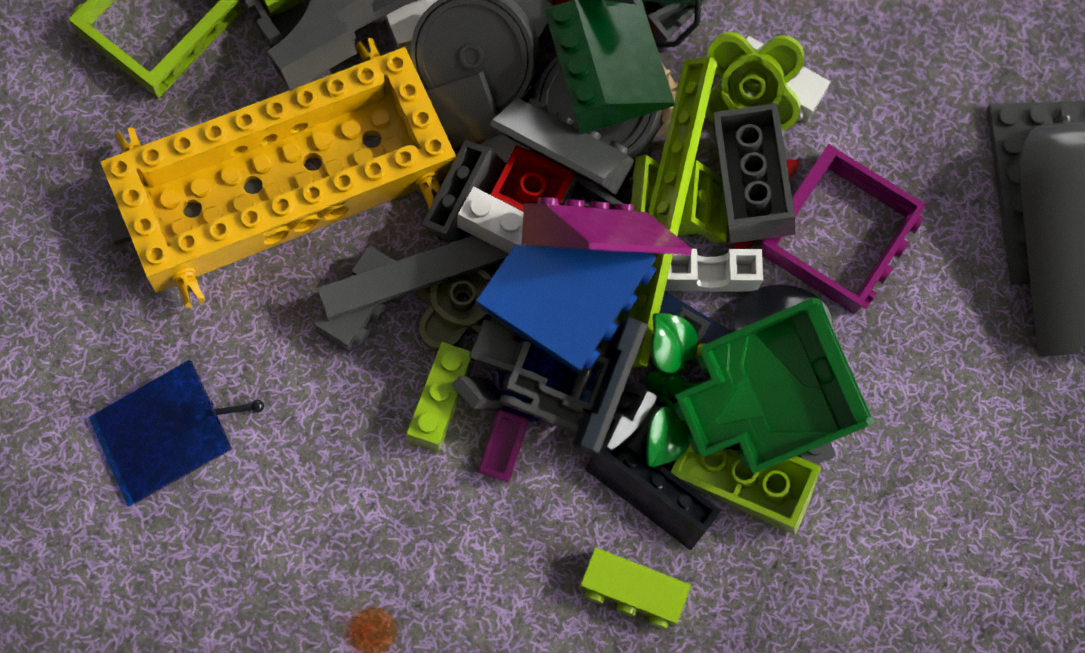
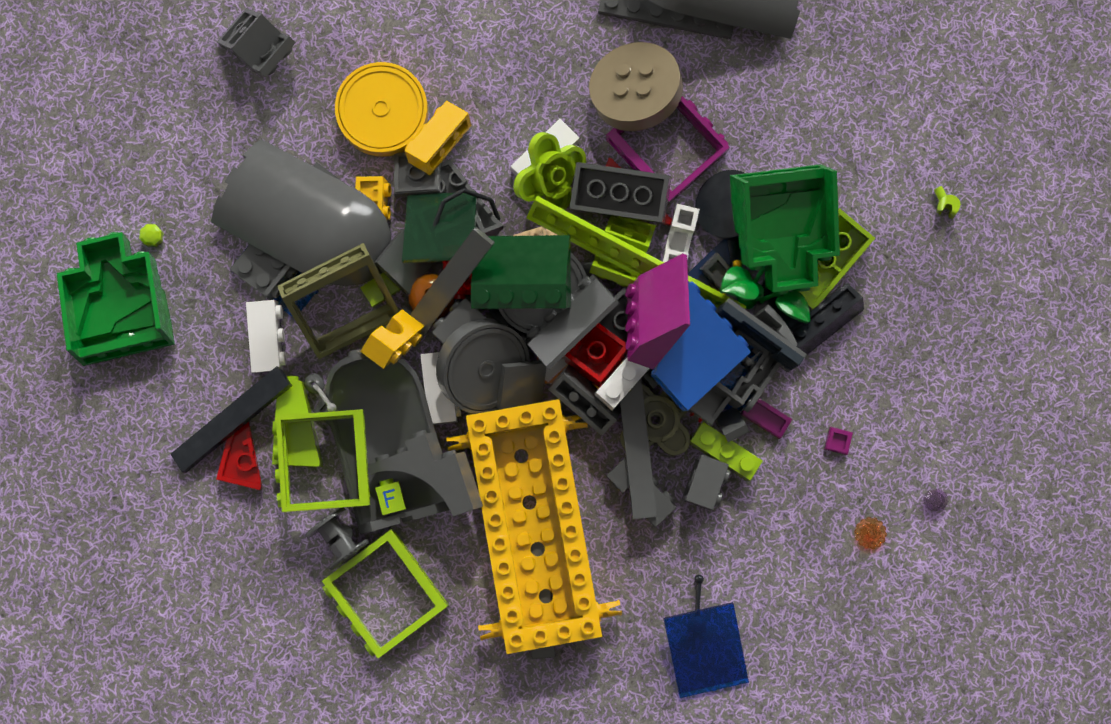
camera: 75 degrees left, 10 degrees up
(389, 375) = (705, 482): none -> dark grey brick
(494, 554) = (838, 441): none -> magenta tile
(634, 588) = (884, 354): lime brick -> none
(879, 631) = (949, 202): none -> lime piece
(904, 165) = (636, 86): none -> dark tan brick

